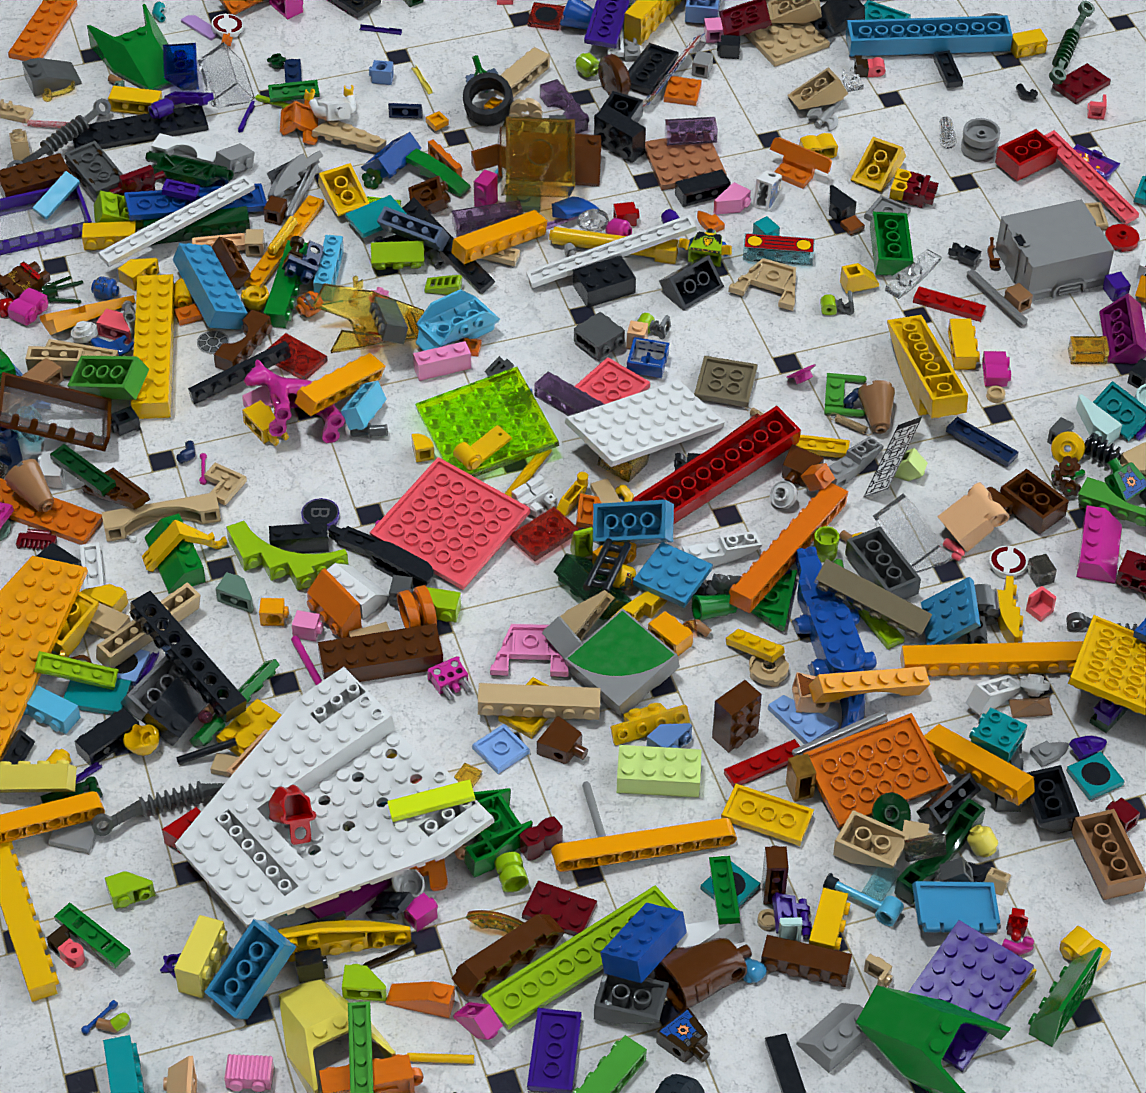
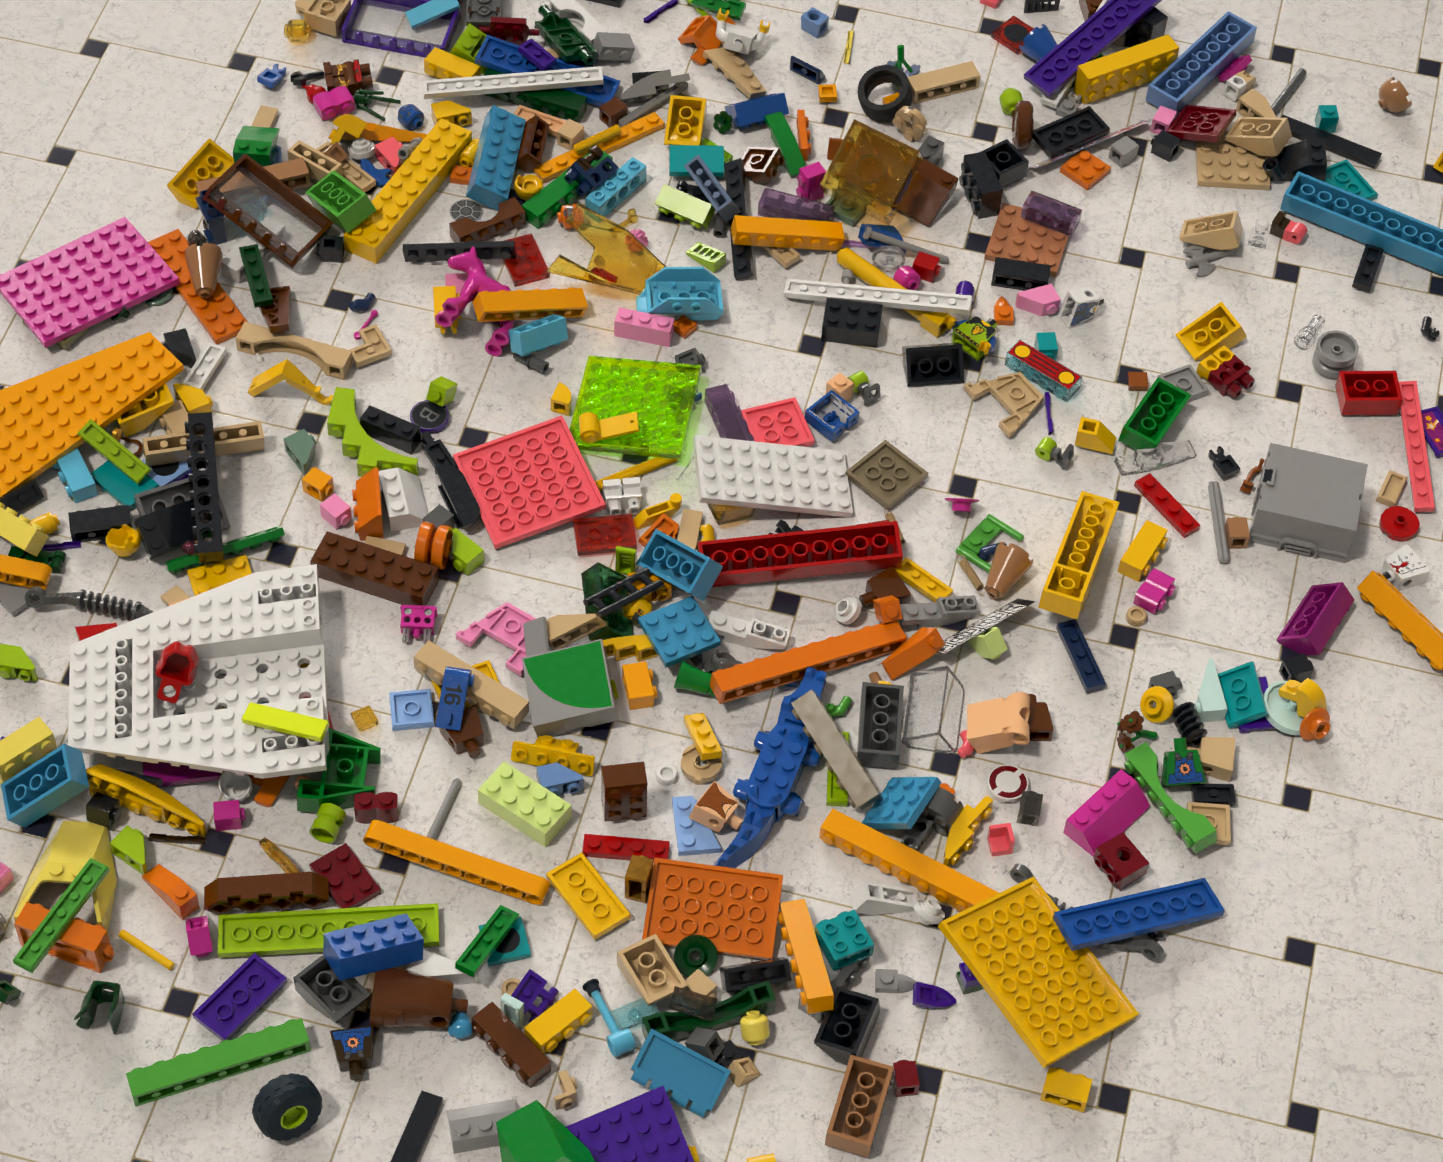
camera: 30 degrees right, 5 degrees up
(36, 537) = (182, 318): dark red piece -> none
(61, 315) = (347, 123): none -> yellow brick
(68, 341) = (336, 152): none -> medium nougat plate
(182, 563) = (278, 403): green slope -> none
(206, 751) = (169, 579): black bar -> none
(306, 660) = (315, 538): dark pink bar -> none
(317, 487) = (441, 391): none -> lime brick
(388, 320) = (618, 265): dark grey brick -> none
(389, 905) = (205, 794): black plate -> none
(540, 715) = (453, 697): none -> blue door
(555, 95) = (956, 119): clear purple arch -> none
(565, 207) = (900, 244): none -> light grey bar
(599, 335) = (804, 372): dark grey brick -> none
(696, 625) = (668, 690): arm -> none
(774, 872) = (537, 950): reddish brown brick -> none
(776, 603) = (758, 707): green wing -> none
(798, 162) = (1133, 294): orange plate -> none
(812, 285) = (1047, 408): none -> dark purple piece
(822, 144) = (1168, 287): yellow brick -> none
(826, 543) = (846, 676): lime wheel -> none
(840, 204) = (1139, 355): black slope -> none
(842, 685) = (740, 816): light orange arch -> none
(859, 726) = (737, 862): light grey axle -> none
(861, 497) = (913, 652): none -> orange slope
(1017, 924) = (724, 1120): red piece -> none
(1021, 947) = (712, 1144): dark pink arm -> none
(1030, 707) = (912, 931): medium nougat slope -> none
(1035, 501) = (1077, 738): reddish brown brick -> none
(1088, 350) = (1263, 619): clear yellow brick -> none
(1095, 775) = (916, 1028): teal tile -> none
(1116, 285) = (1347, 569): dark purple brick -> none

